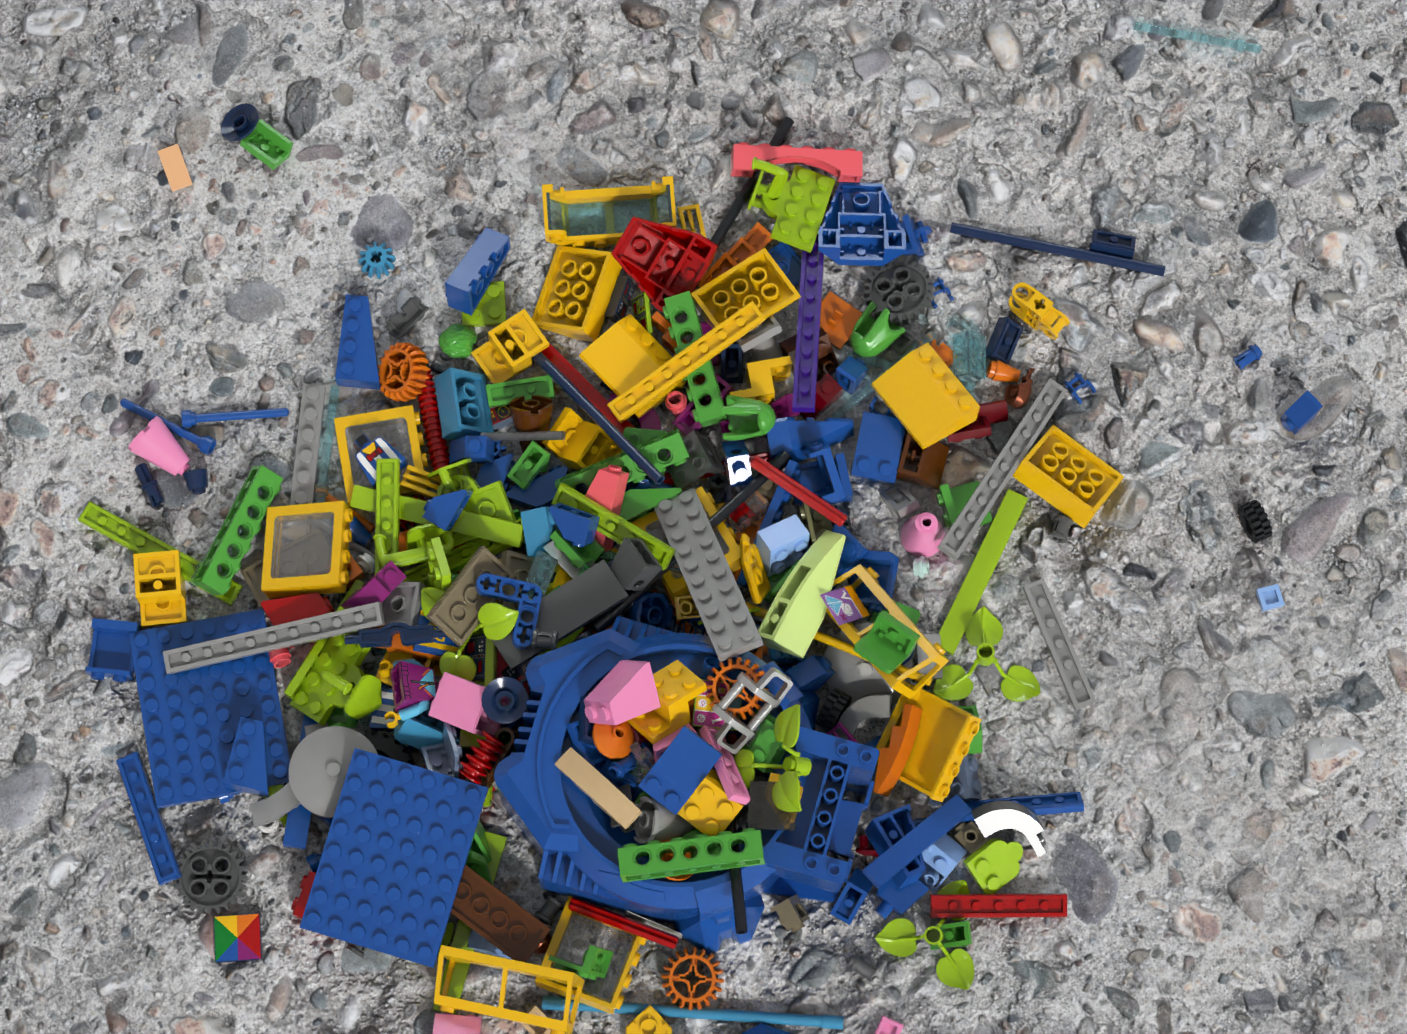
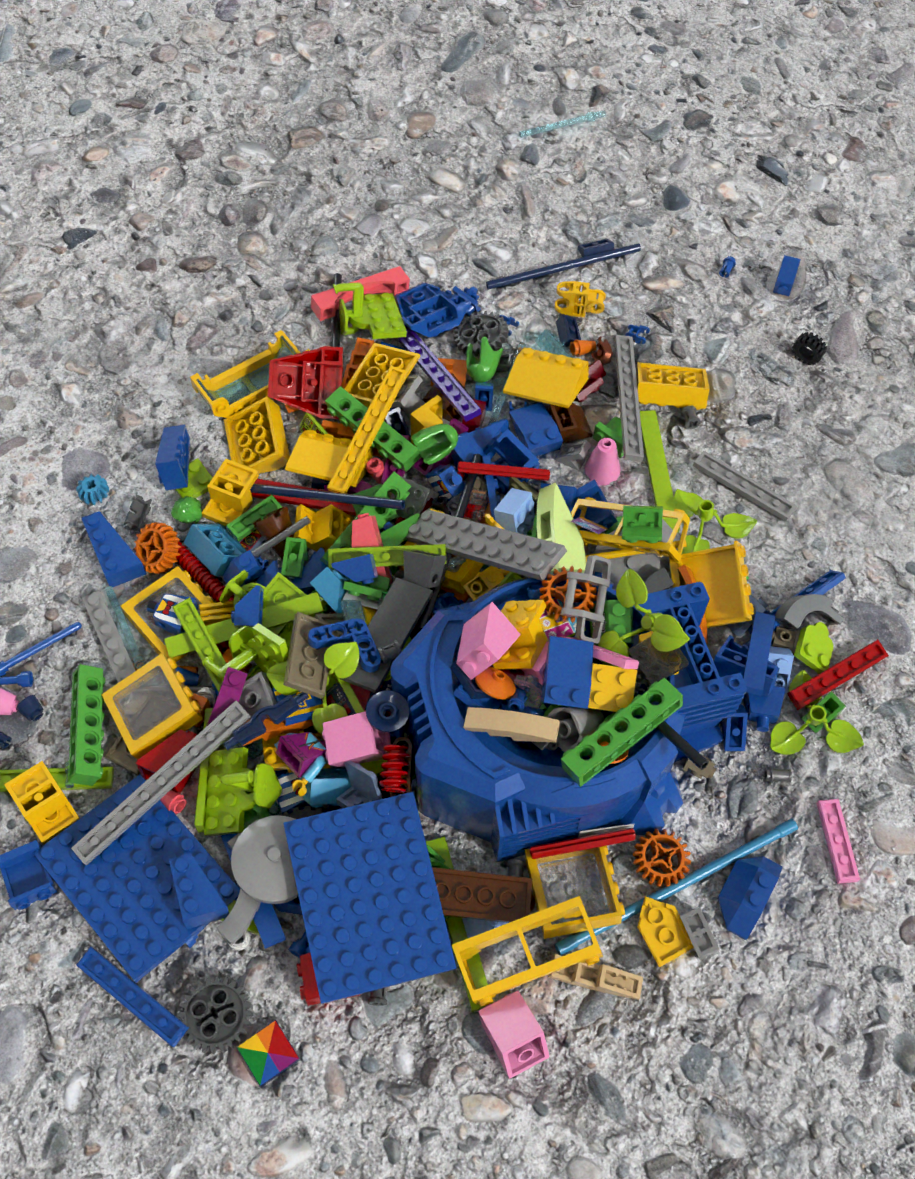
camera: 30 degrees left, 15 degrees down
(595, 963) = (584, 881): bright green bracket -> none
(620, 299) = (290, 427): slope -> none
(920, 566) = (617, 486): light aqua plate -> none
(1269, 597) = (852, 389): light blue plate -> none

